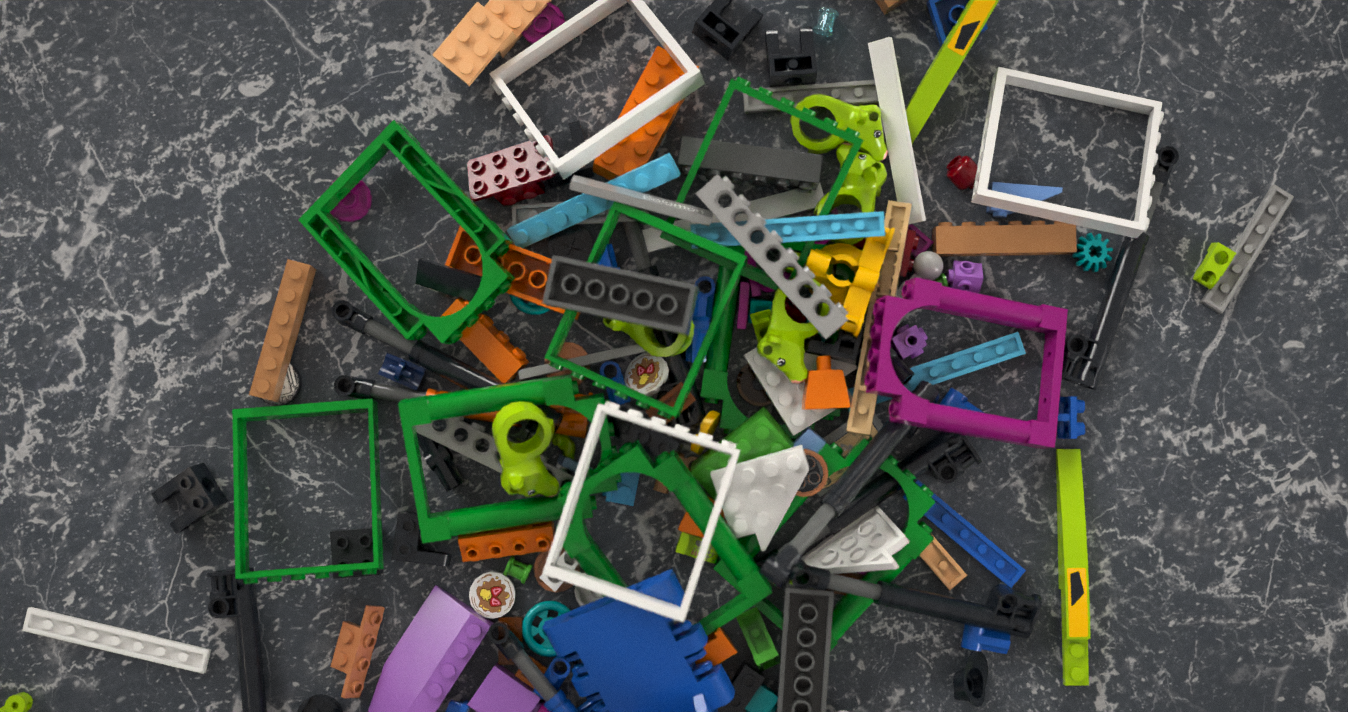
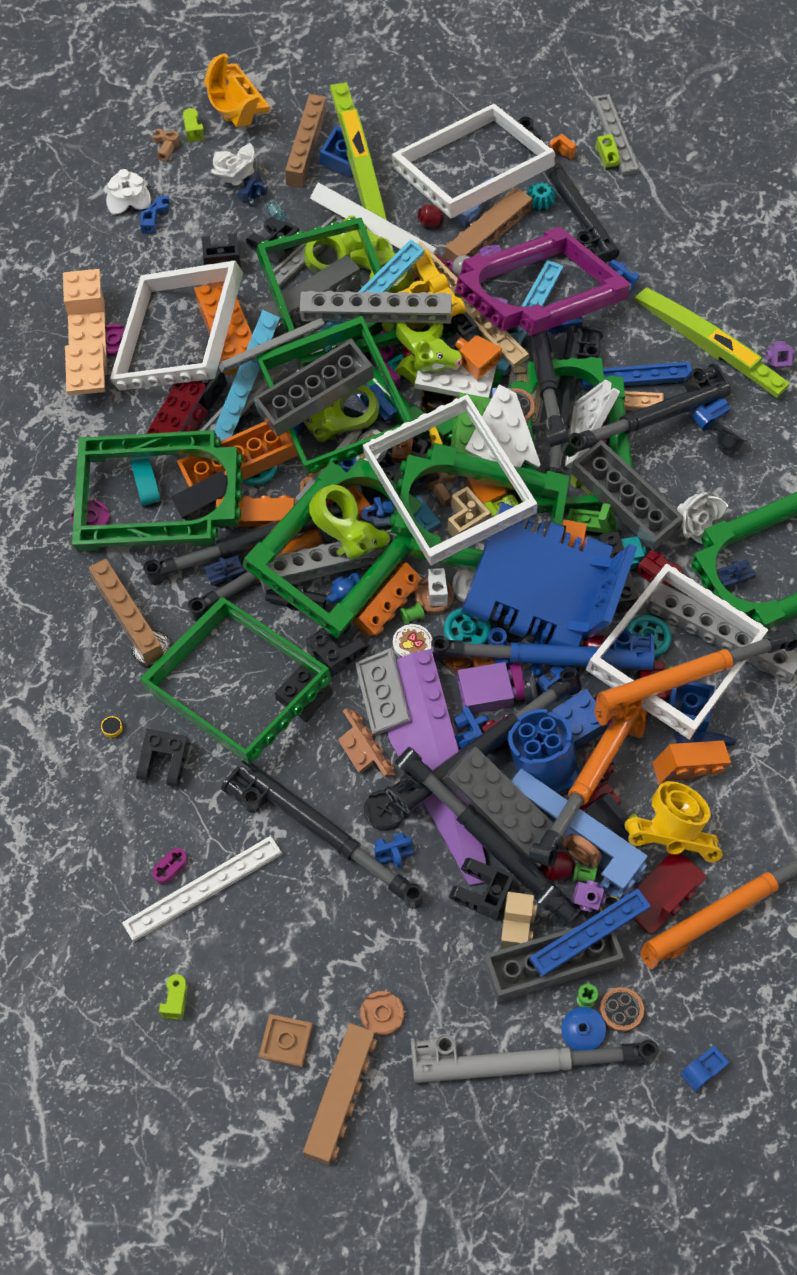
camera: 50 degrees left, 25 degrees down
(108, 601) = (172, 869): none -> magenta beam
(178, 424) = (111, 727): none -> black tile
(419, 618) = (383, 692): none -> light grey tile
(420, 216) = (145, 480): none -> teal beam
(482, 491) = (342, 587): none -> blue piece
(577, 454) = (380, 510): none -> blue hips
(660, 533) = (468, 511): none -> tan brick
(1114, 648) = (785, 357): none -> medium lavender brick
(1179, 218) = (564, 146): none -> orange bracket

